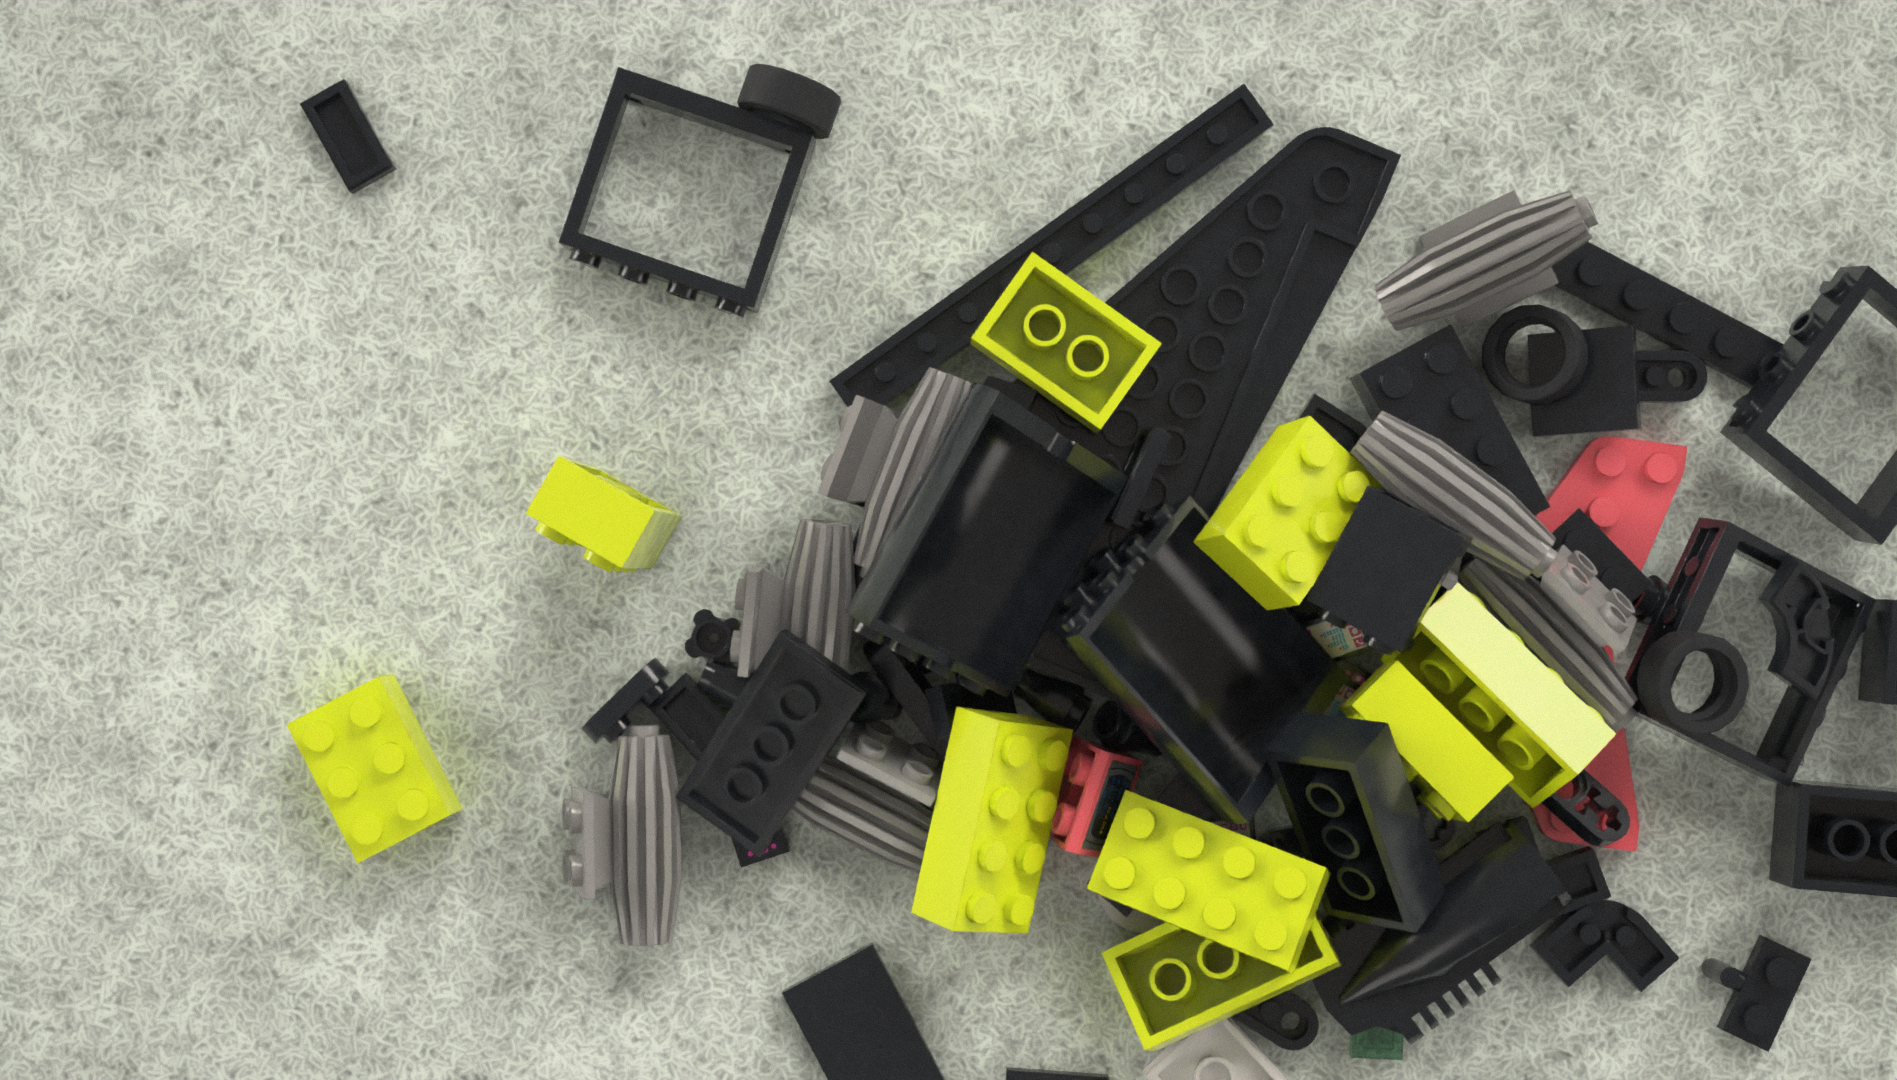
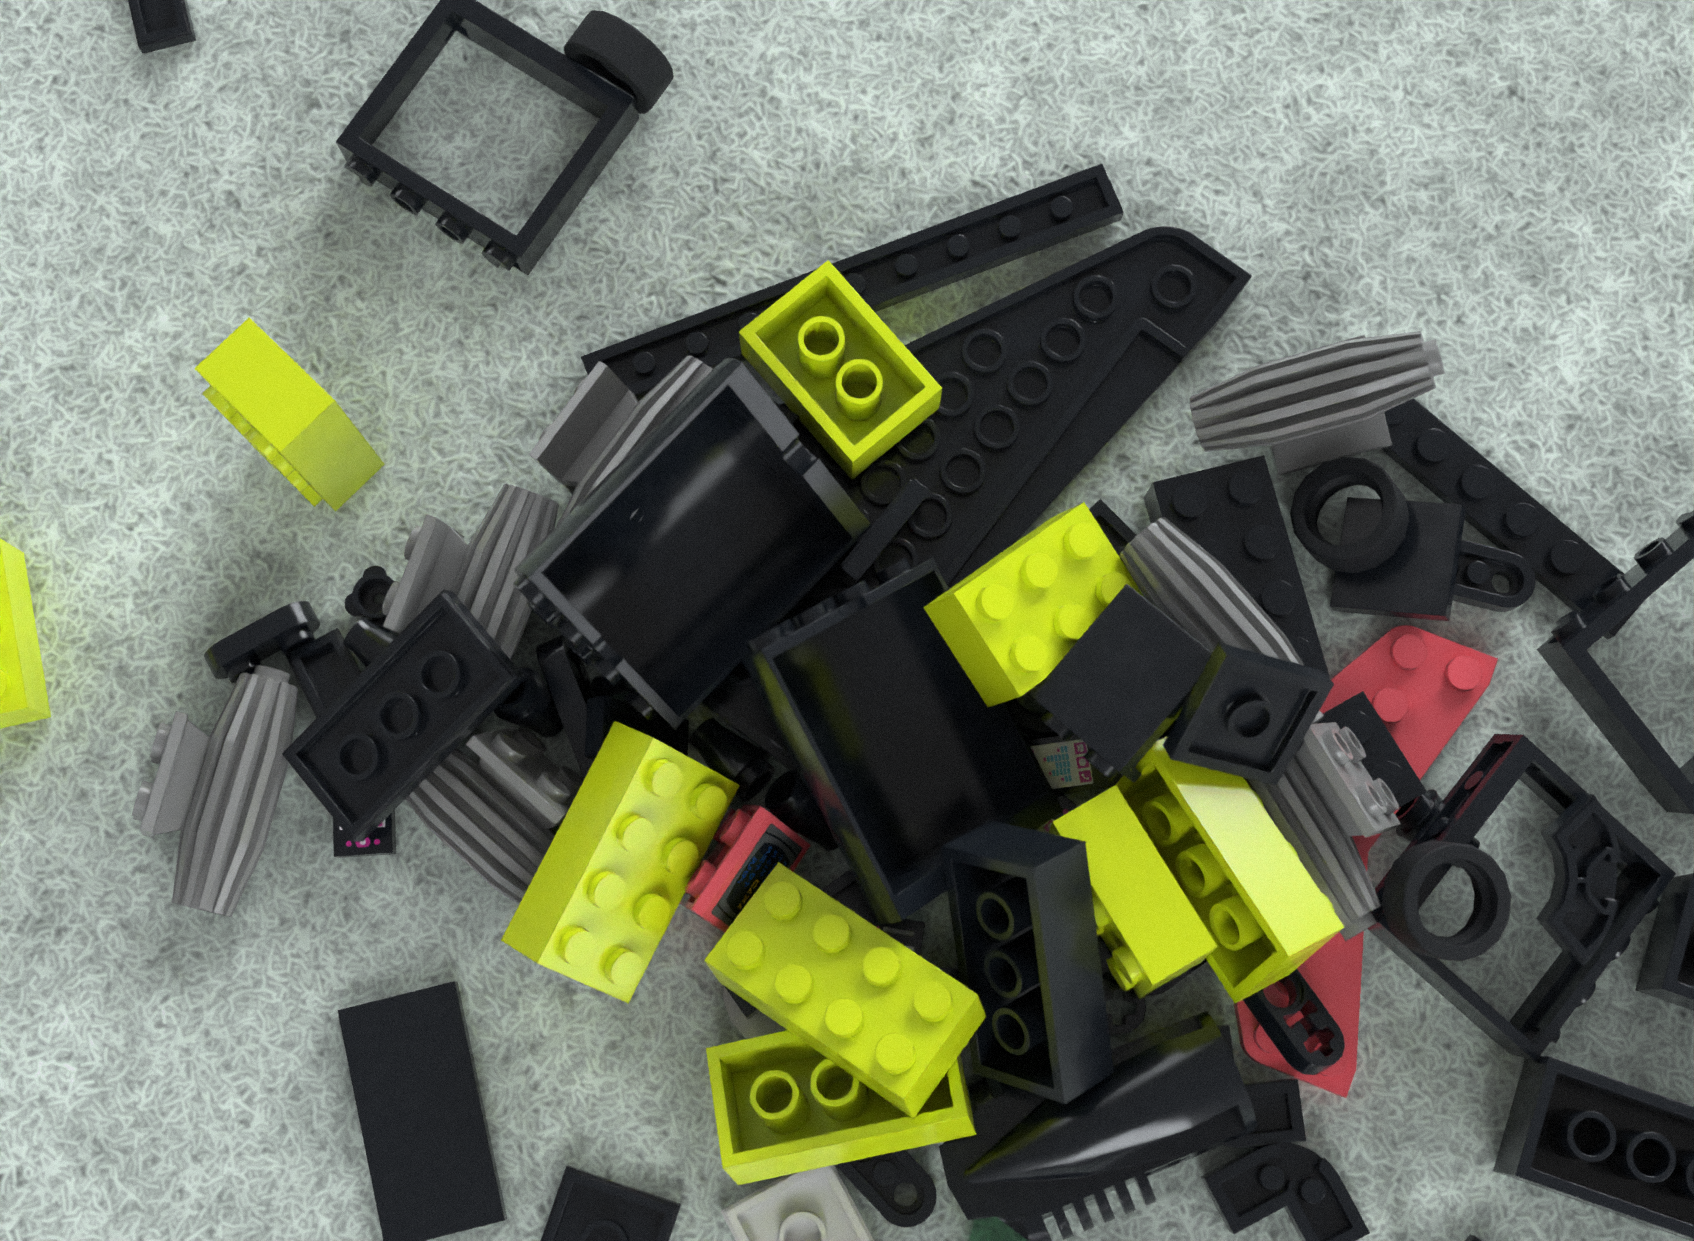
camera: 10 degrees right, 10 degrees down
(1498, 577) = (1247, 714): none -> black plate

